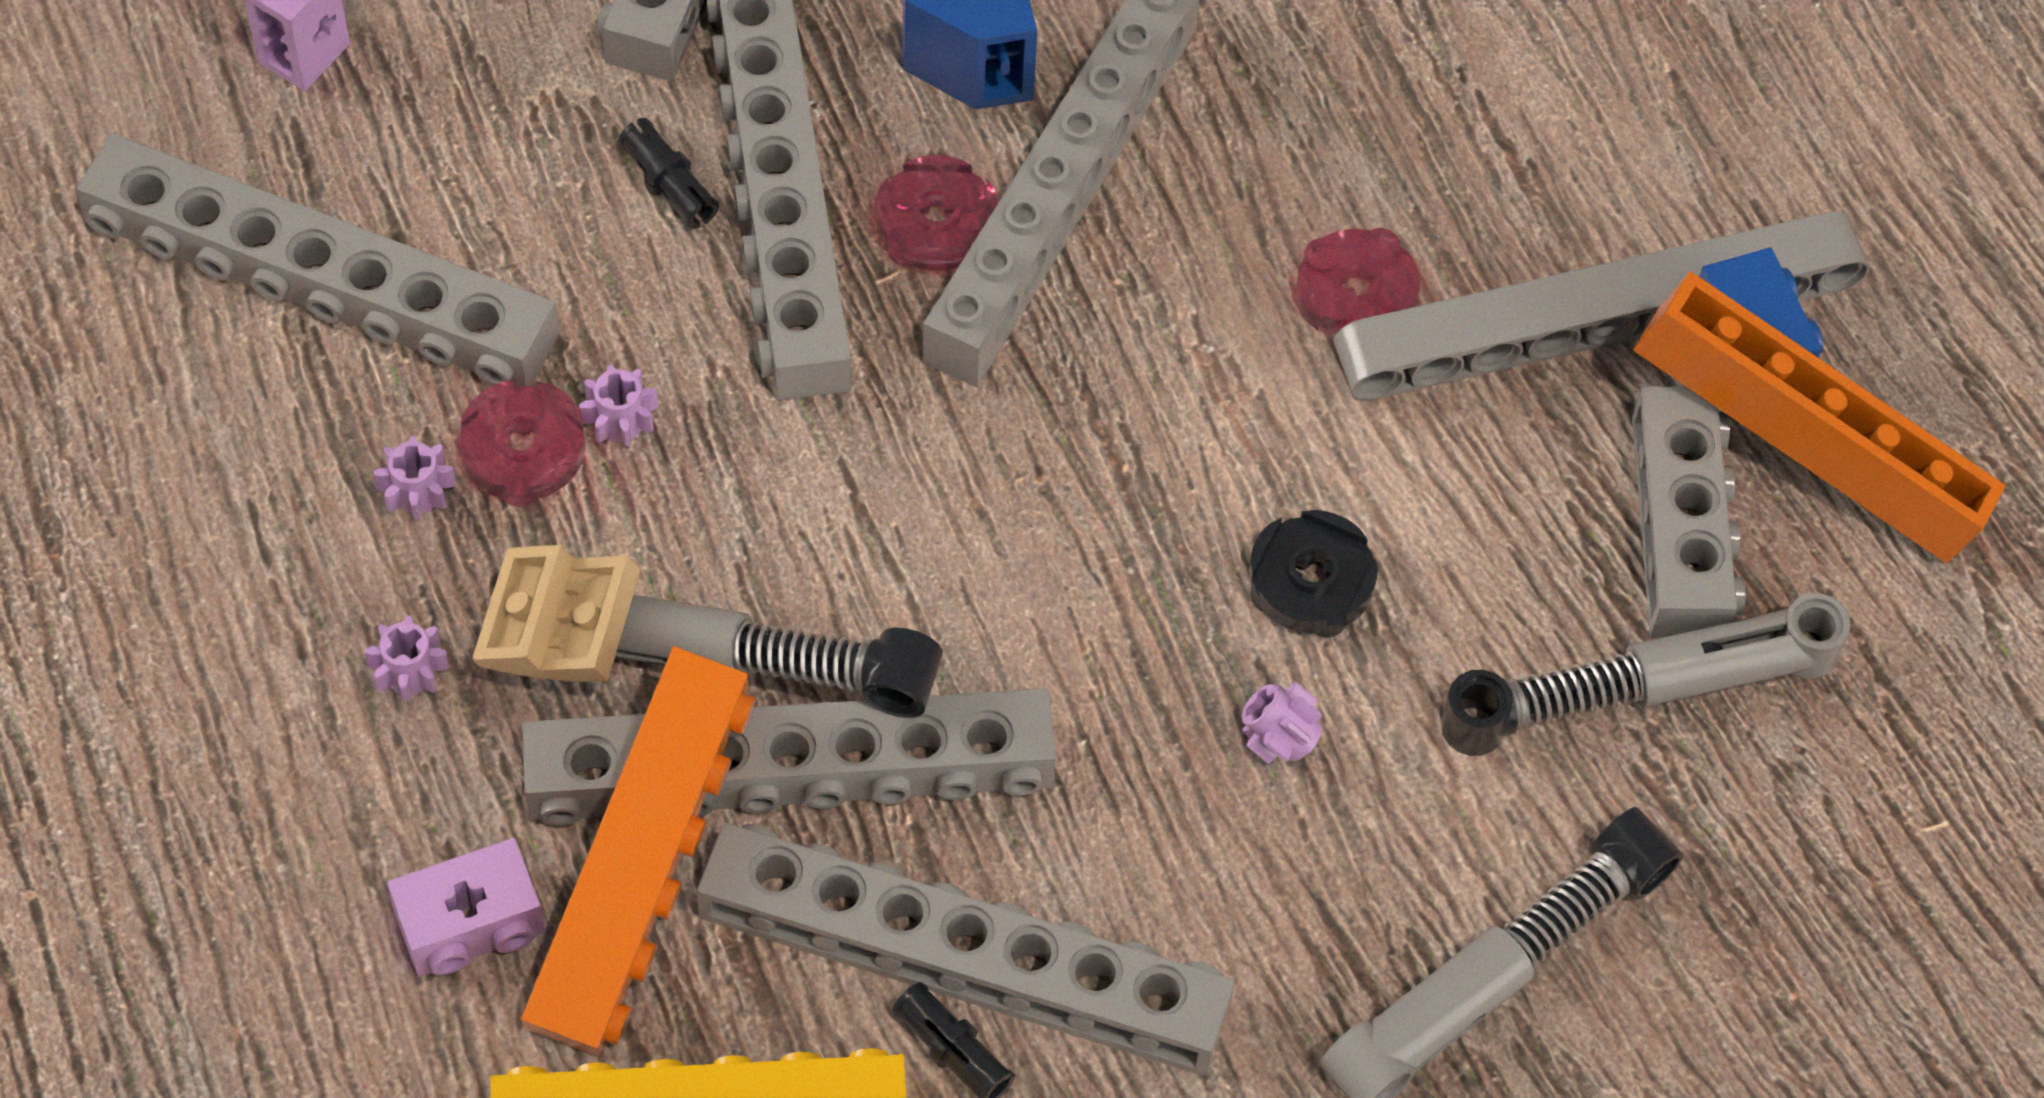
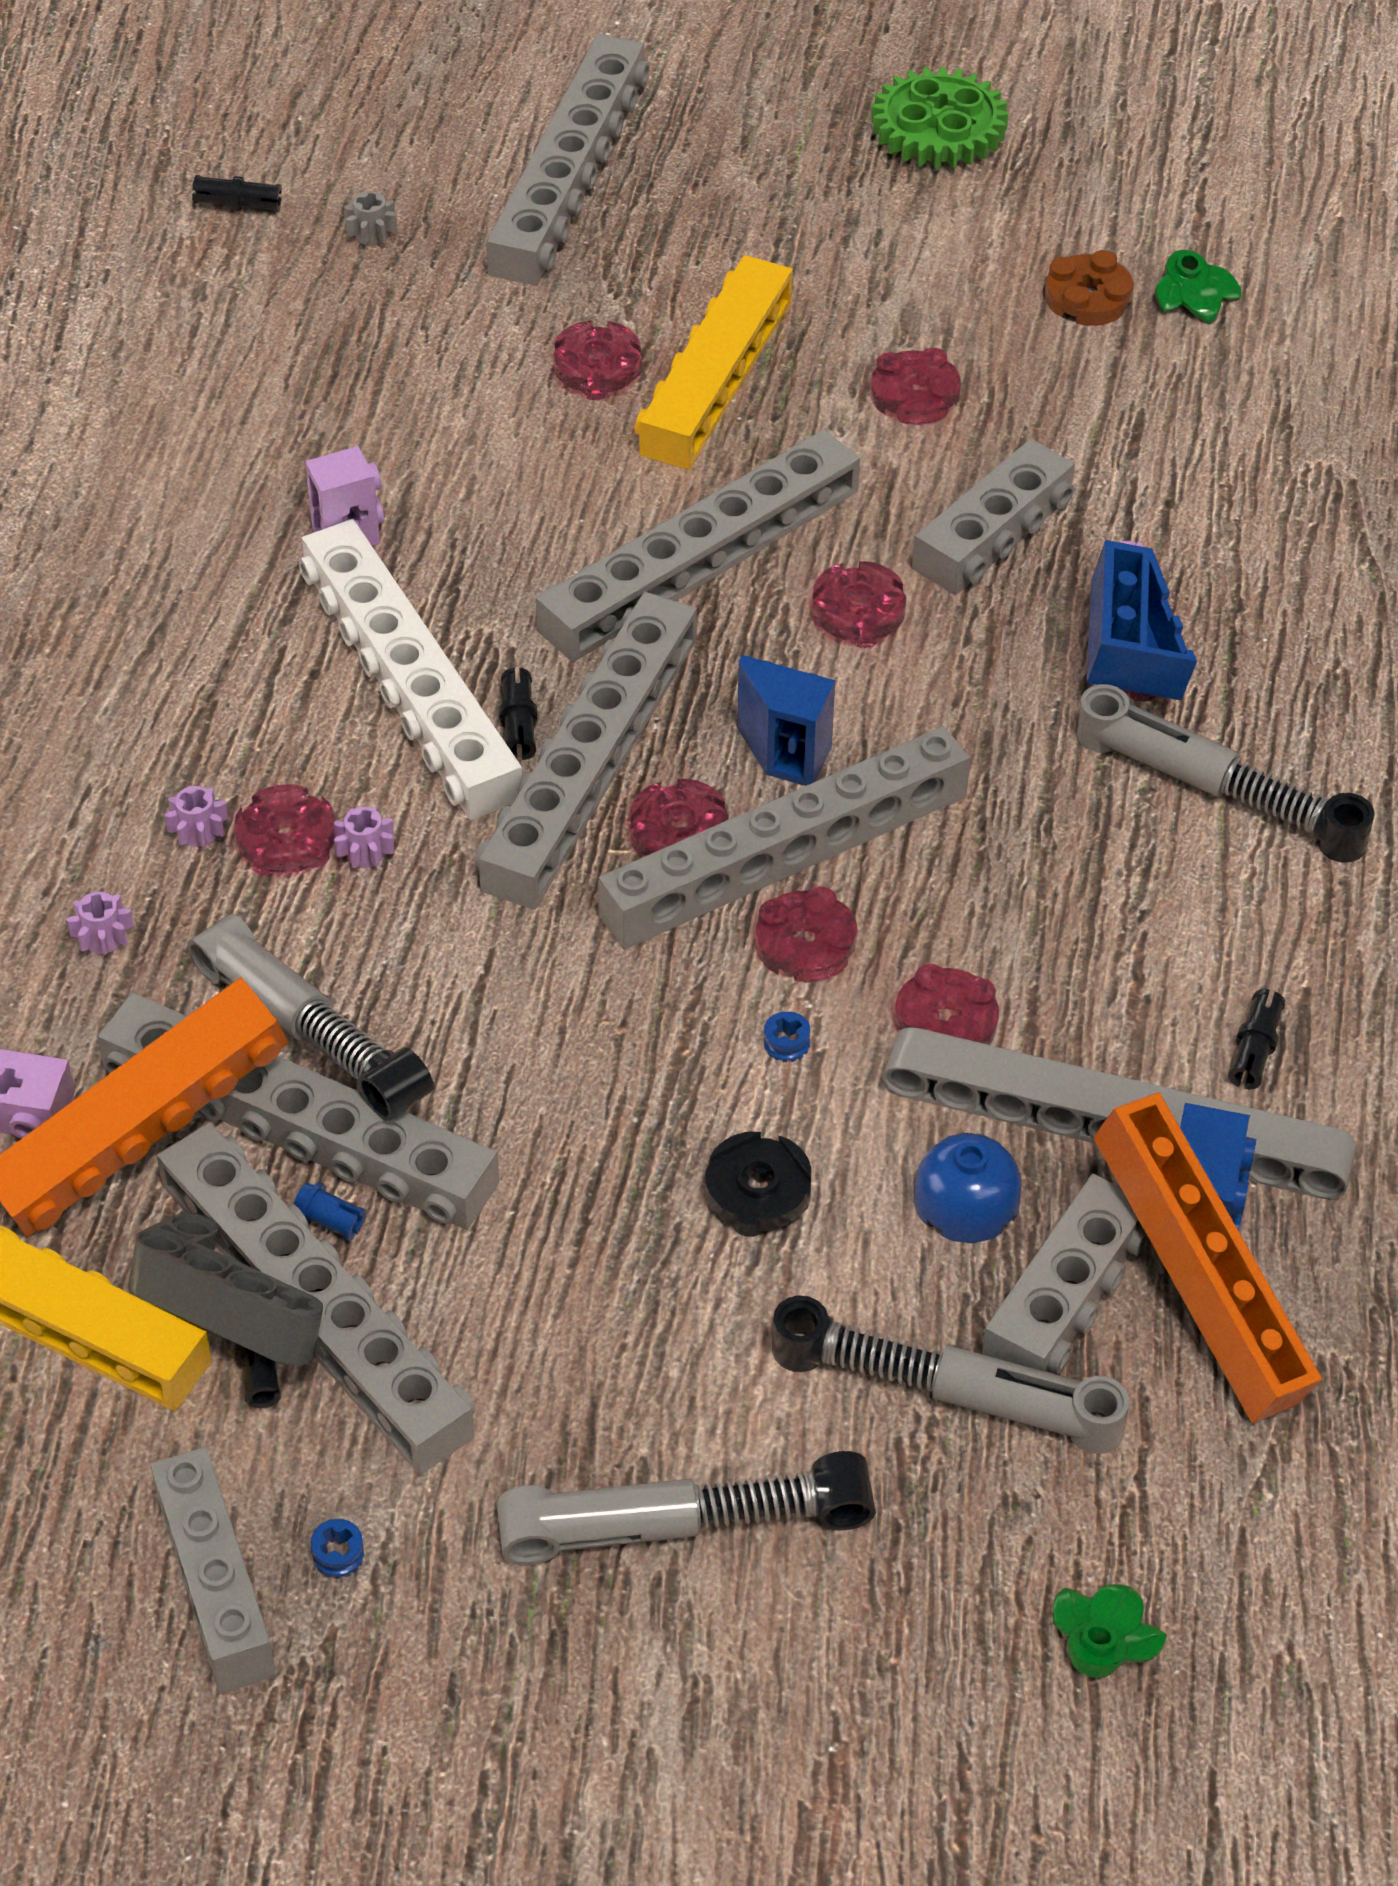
camera: 35 degrees right, 10 degrees down
(296, 237) = (244, 661): light grey brick -> none
(496, 151) = (411, 670): none -> white brick
(556, 614) = (204, 935): tan slope -> none
(894, 1005) = (184, 1275): none -> dark grey beam
(907, 847) = (330, 1210): none -> blue pin
(1156, 241) = (806, 911): none -> clear pink plate
(1228, 409) = (783, 1047): none -> blue bush
(1281, 722) = (650, 1265): lavender gear -> none
(1517, 465) = (968, 1187): none -> blue cylinder
(1672, 153) = (1256, 1039): none -> black pin
(1965, 850) = (1105, 1629): none -> green plate

